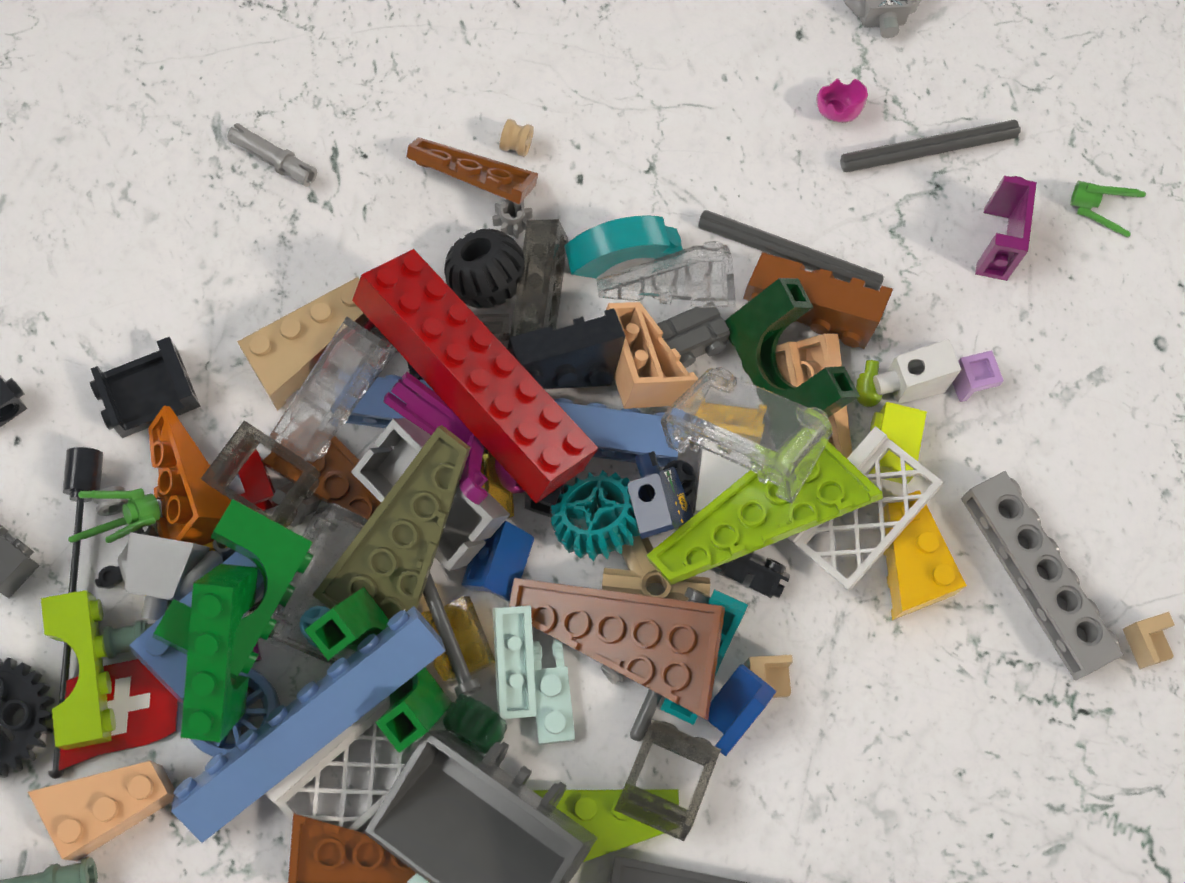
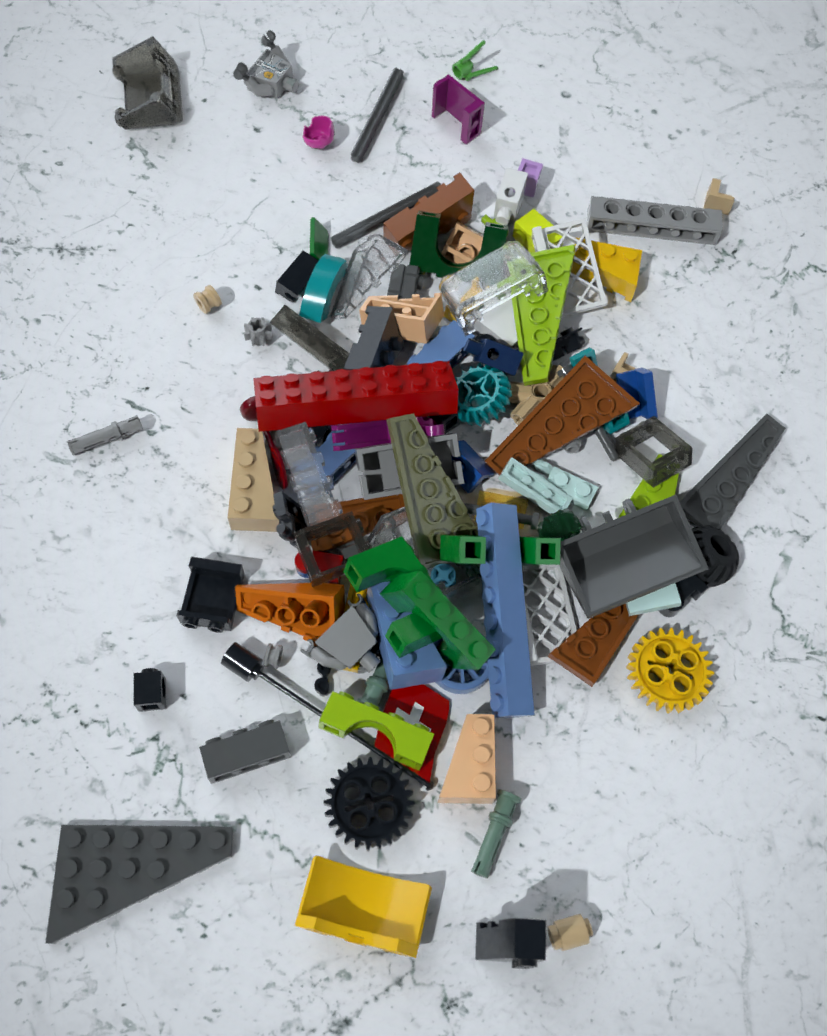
camera: 55 degrees left, 5 degrees down
(138, 512) = (294, 640): bright green plant -> none
(277, 396) = (290, 514): none -> black plate
(484, 268) = (280, 356): black wheel -> none
(488, 174) = (214, 329): dark orange wing -> none
(612, 205) = (296, 277): none -> black hinge
(686, 200) = (318, 239): none -> green slope

